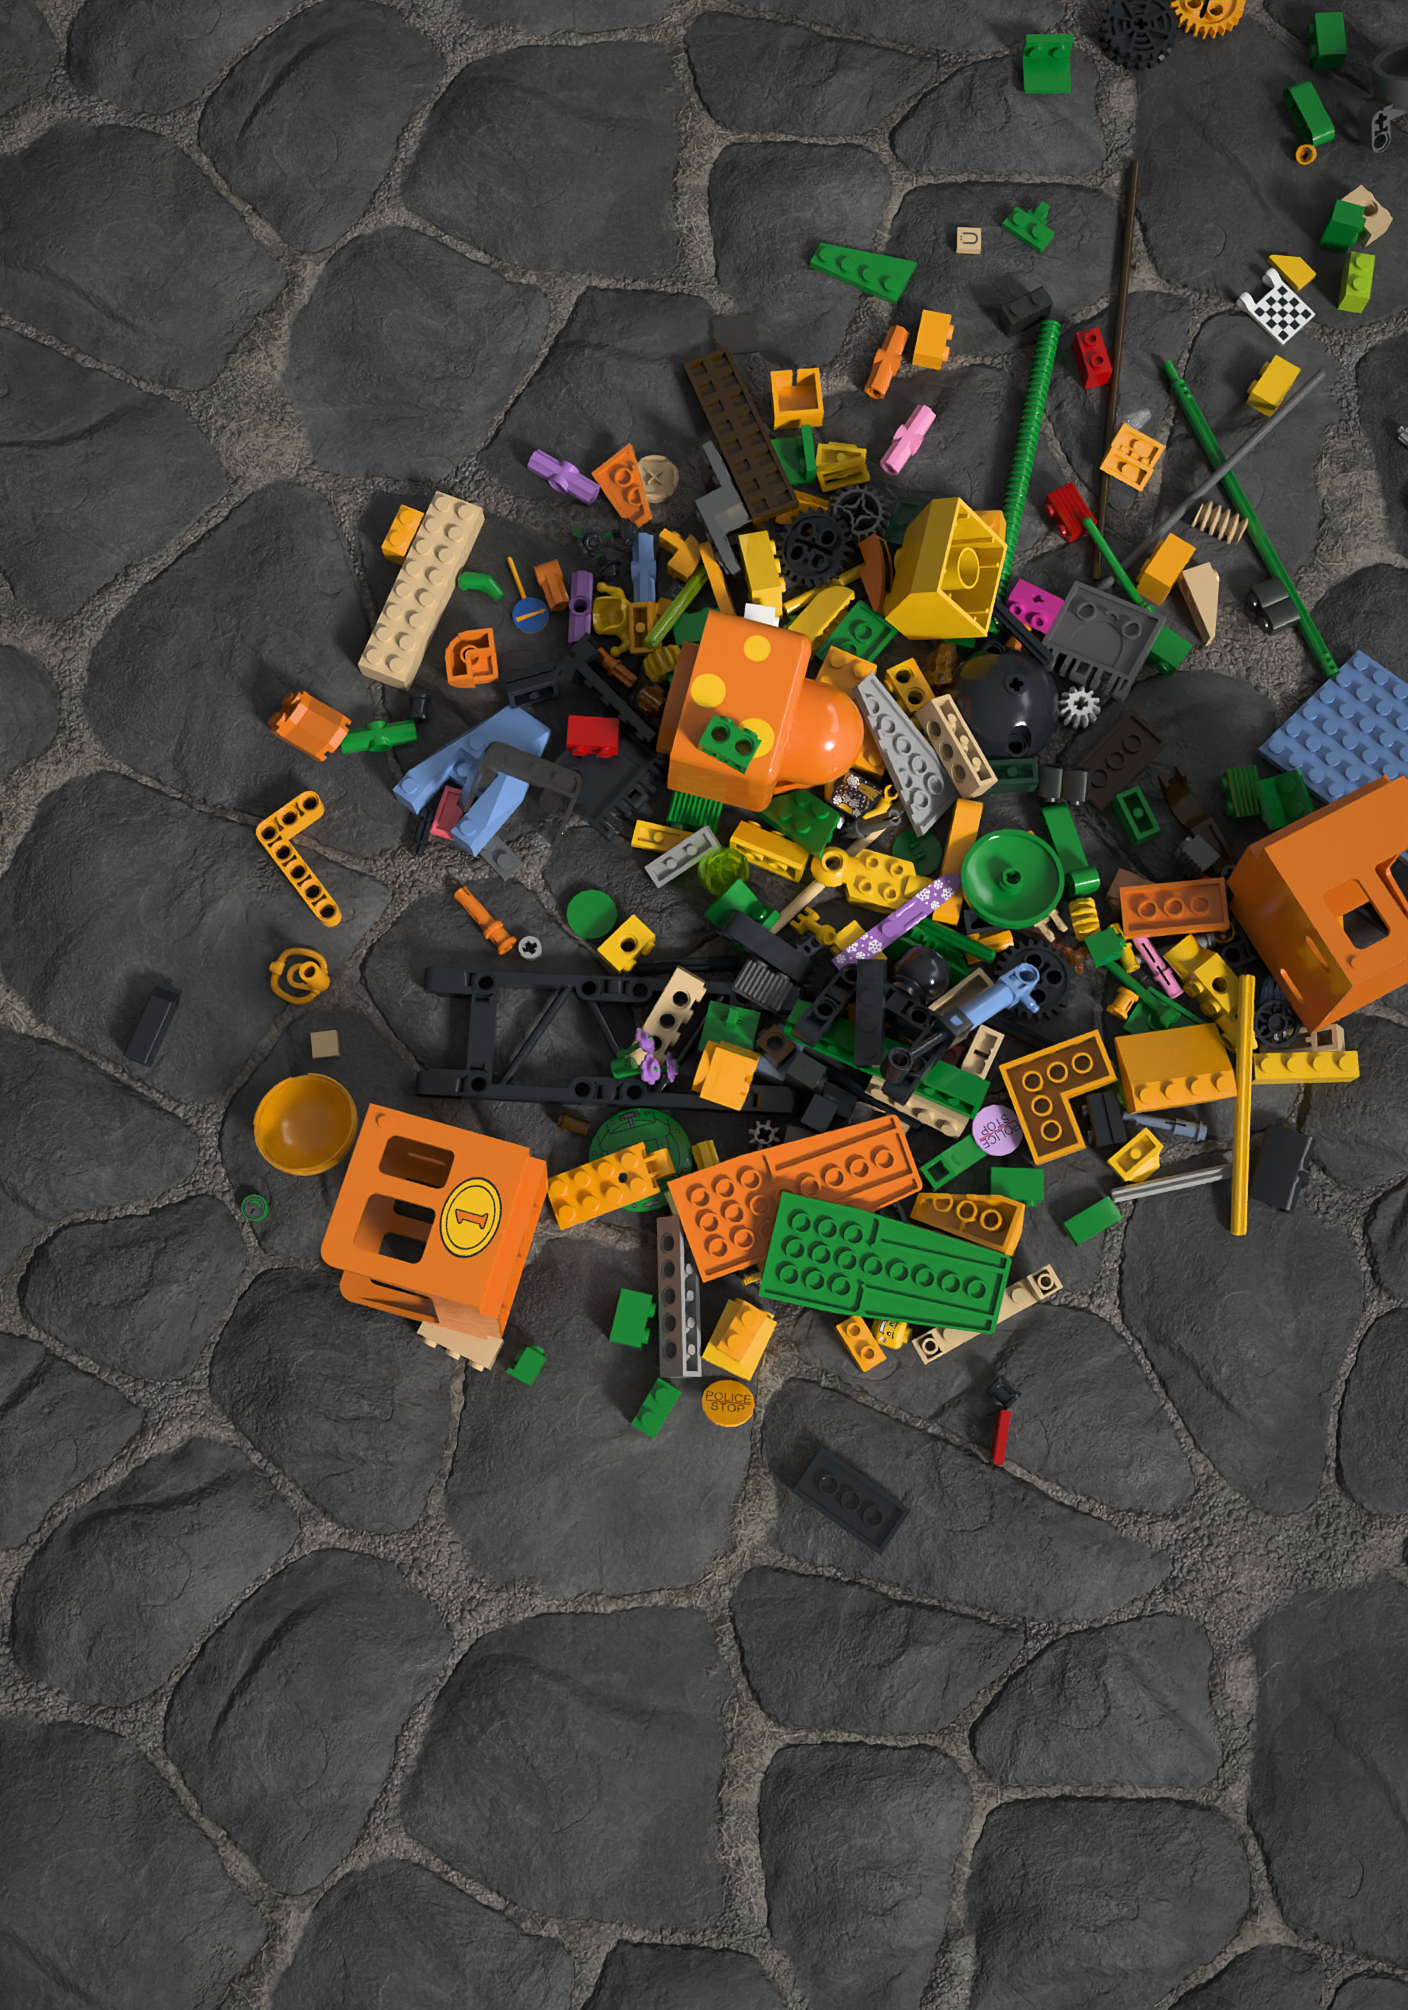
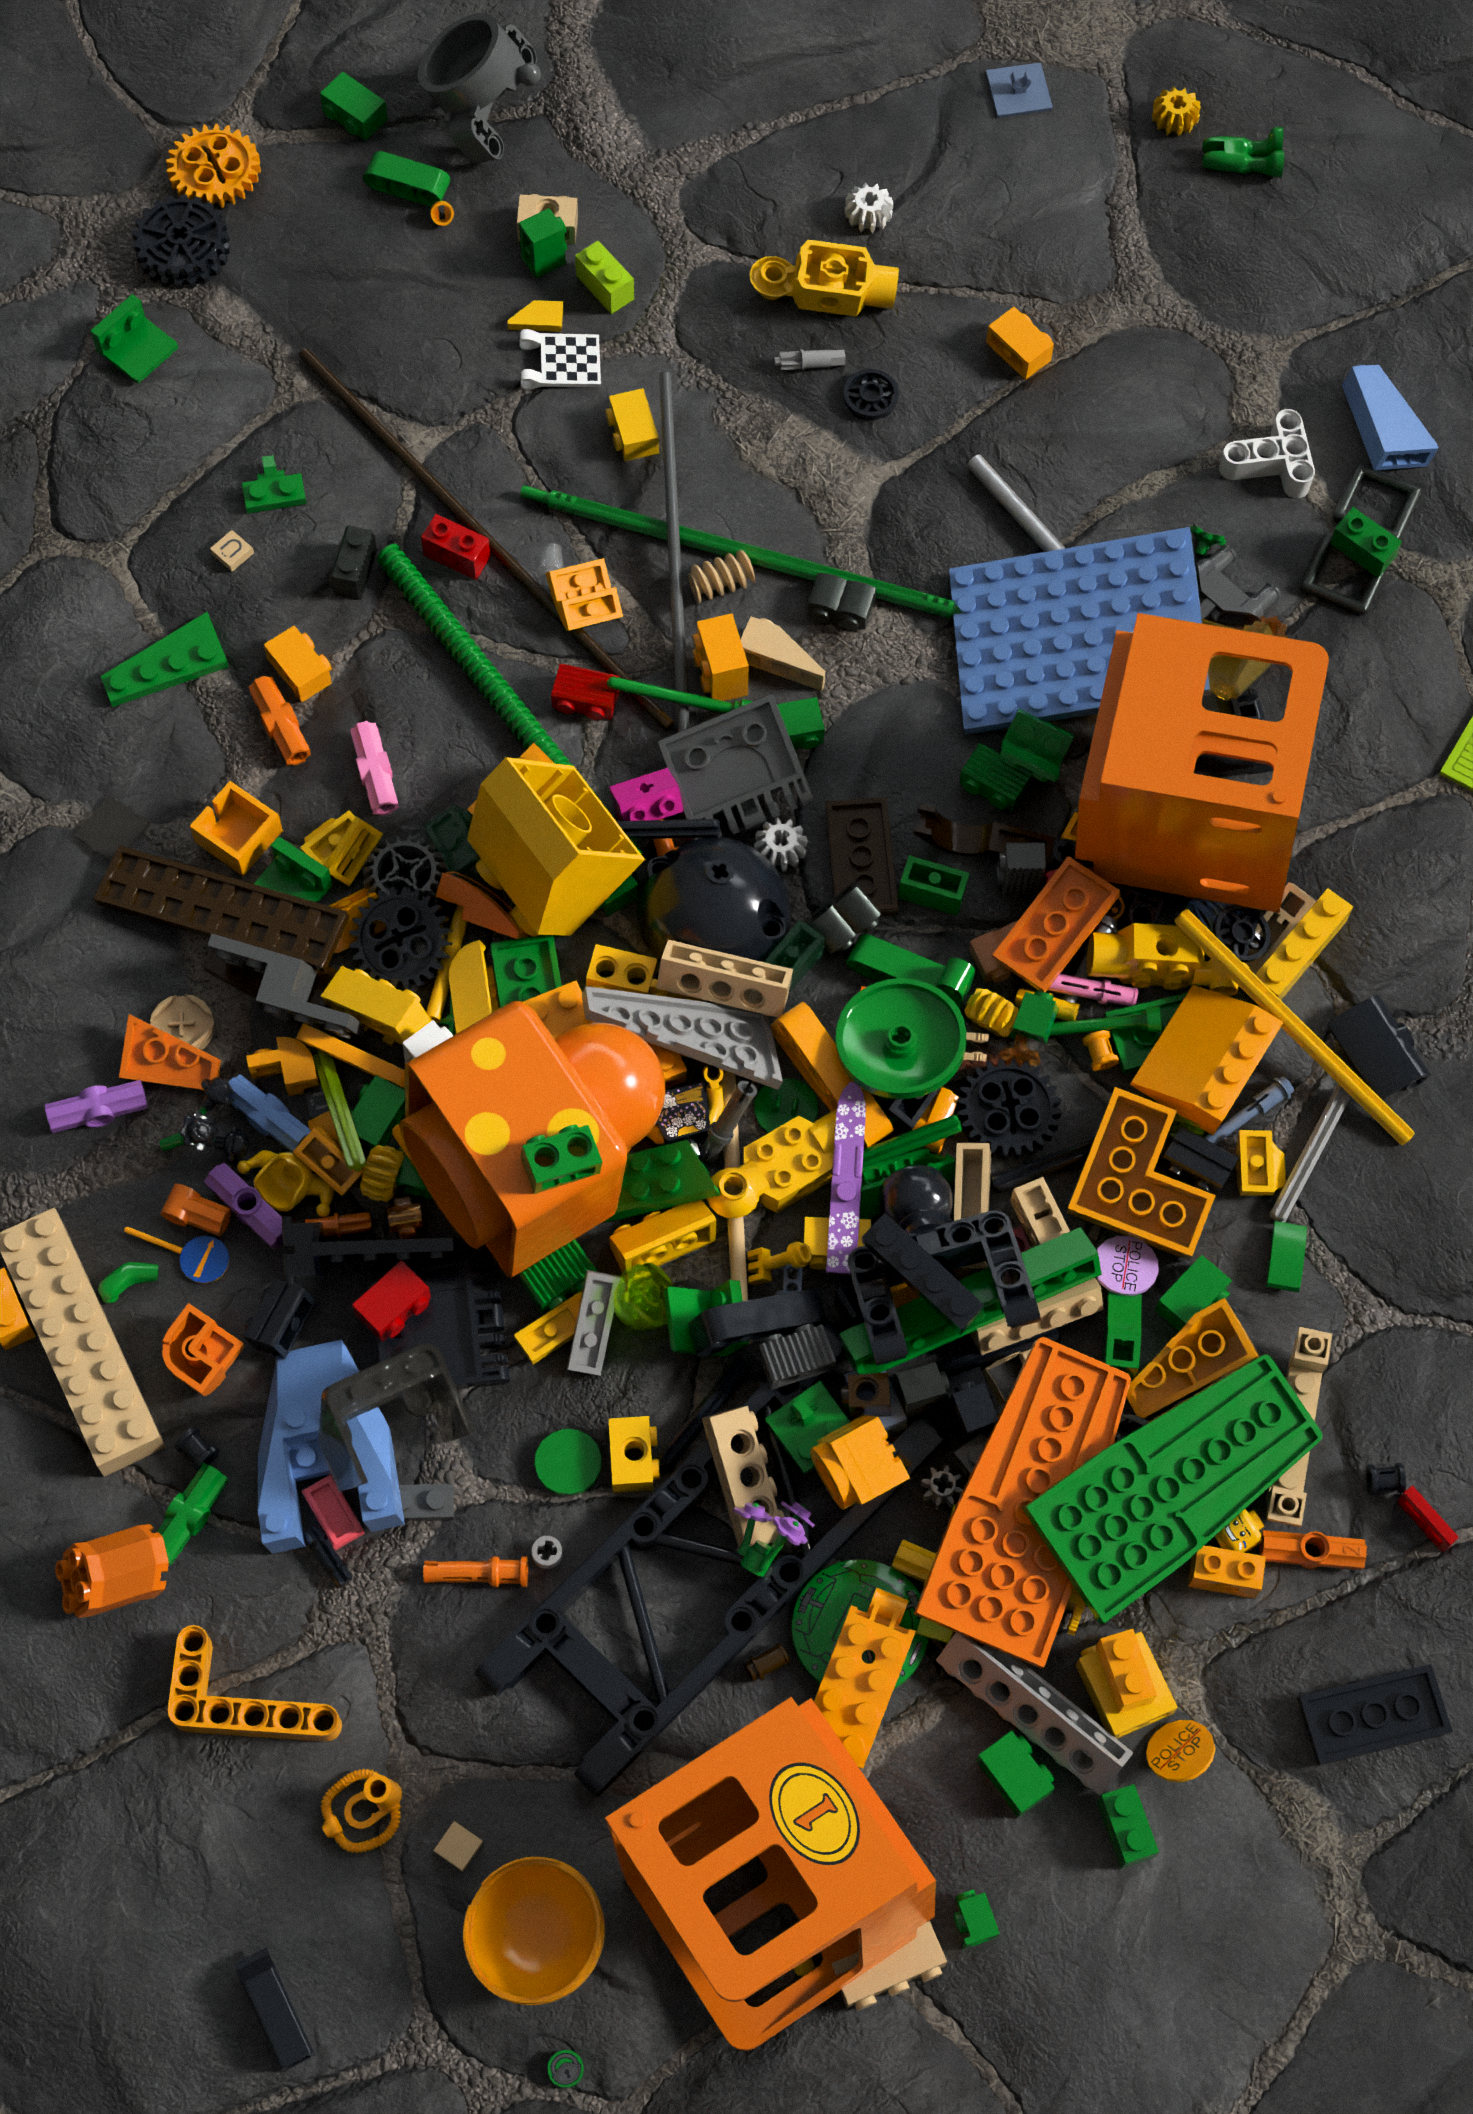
camera: 50 degrees left, 10 degrees down
(930, 1398) = (1334, 1551): none -> orange piece
(940, 665) = (627, 926): clear orange rock -> none
(958, 1022) = (1004, 1194): piece -> none

